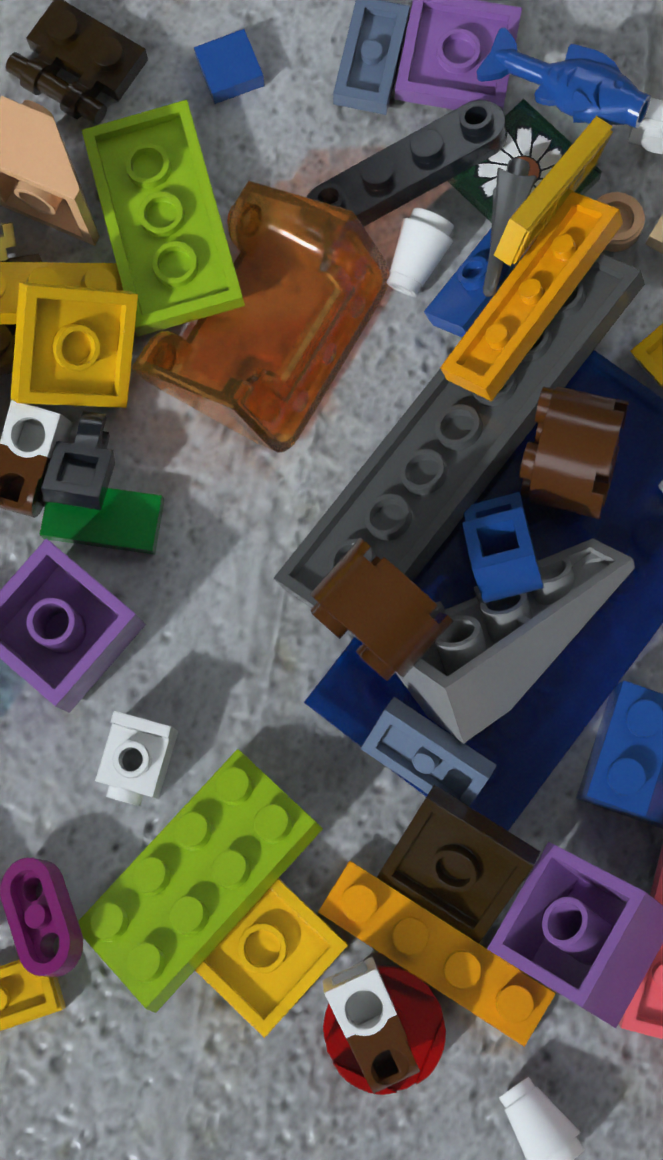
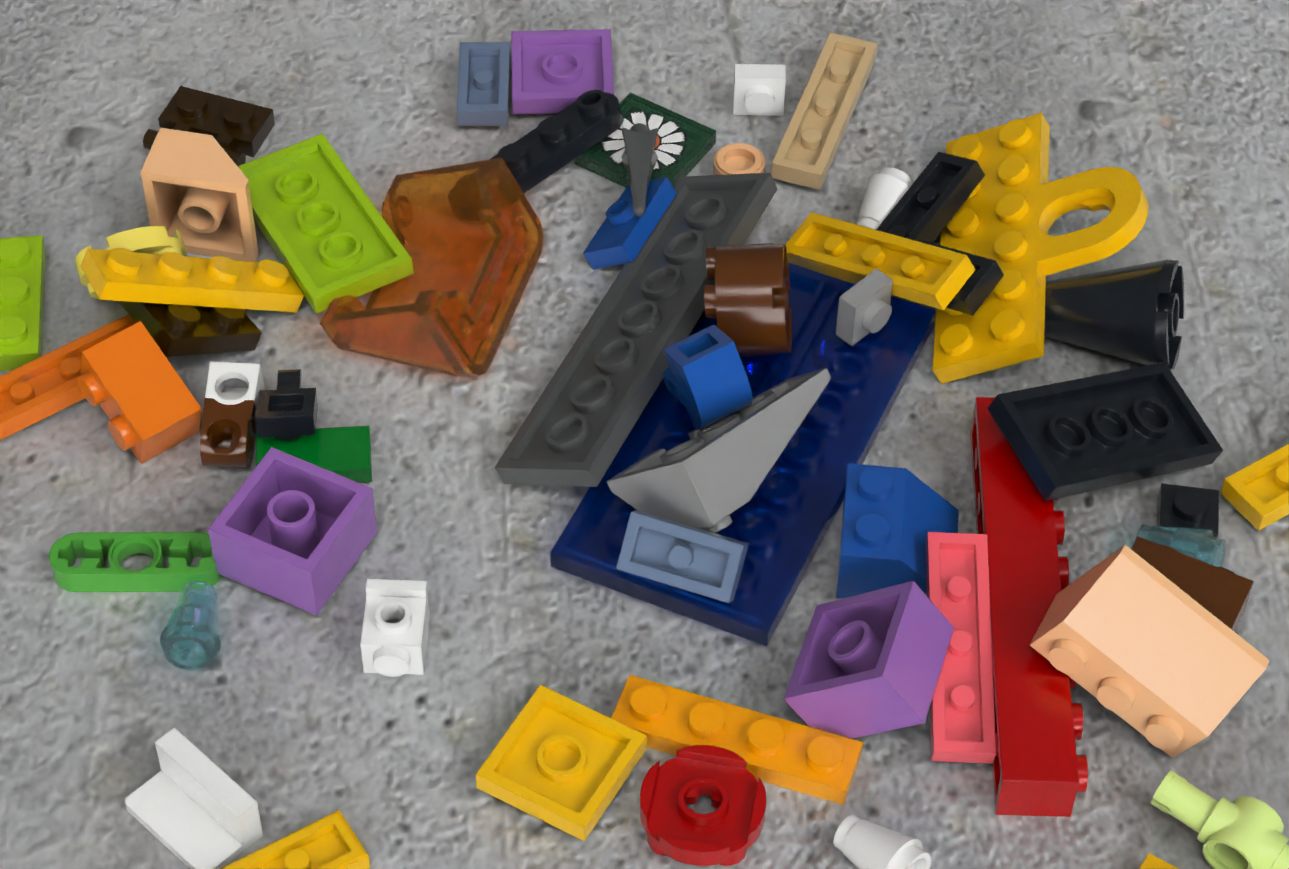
camera: 20 degrees left, 30 degrees down
(40, 921) = (331, 772): magenta plate -> none
(73, 345) = (261, 311): yellow plate -> none
(197, 880) = (480, 713): lime plate -> none
(229, 66) = (353, 114): blue tile -> none
(371, 1024) = (688, 773): leg -> none
(380, 610) = (605, 420): reddish brown brick -> none
(419, 249) = (566, 207): white cone -> none
(458, 864) = (735, 641): dark brown plate -> none
(532, 295) = (677, 209): light orange plate -> none
(552, 191) = (675, 131): yellow tile -> none
(580, 86) = (676, 62): blue animal -> none

